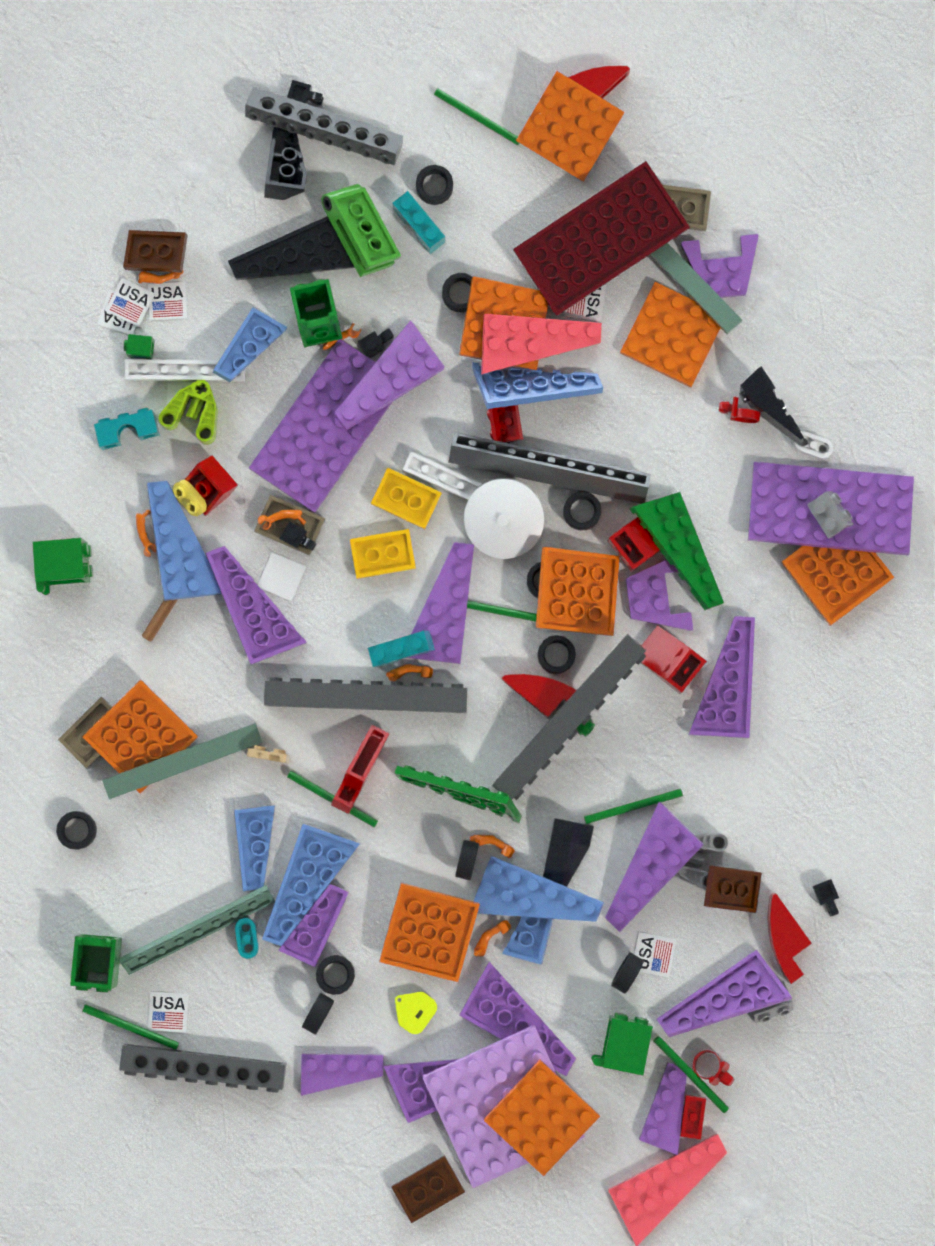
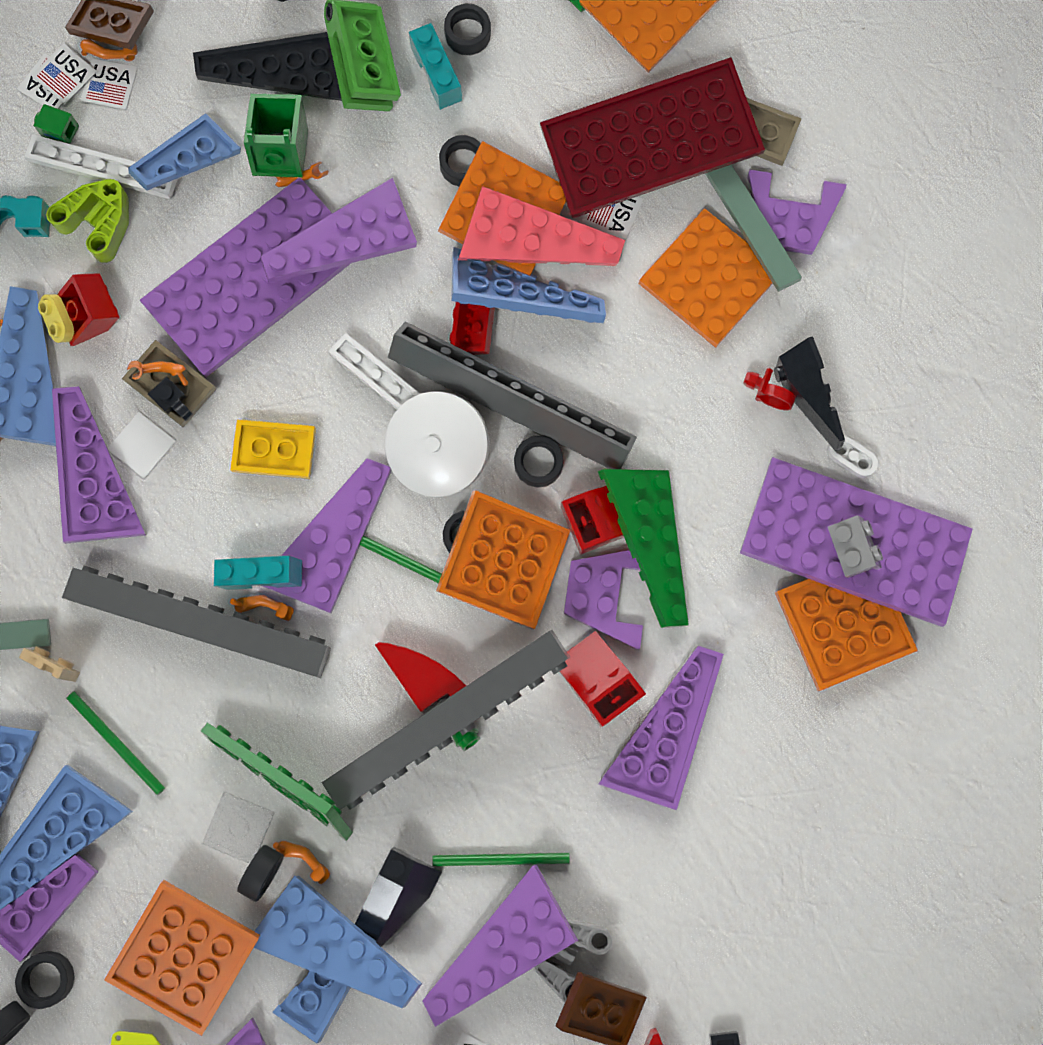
camera: 15 degrees right, 5 degrees down
(360, 769) = (159, 714): red slope -> none
(373, 344) = (340, 194): black plate -> none
(406, 498) = (323, 388): yellow plate -> none
(481, 946) = (249, 993): orange piece -> none
(571, 654) = (449, 614): black tyre -> none

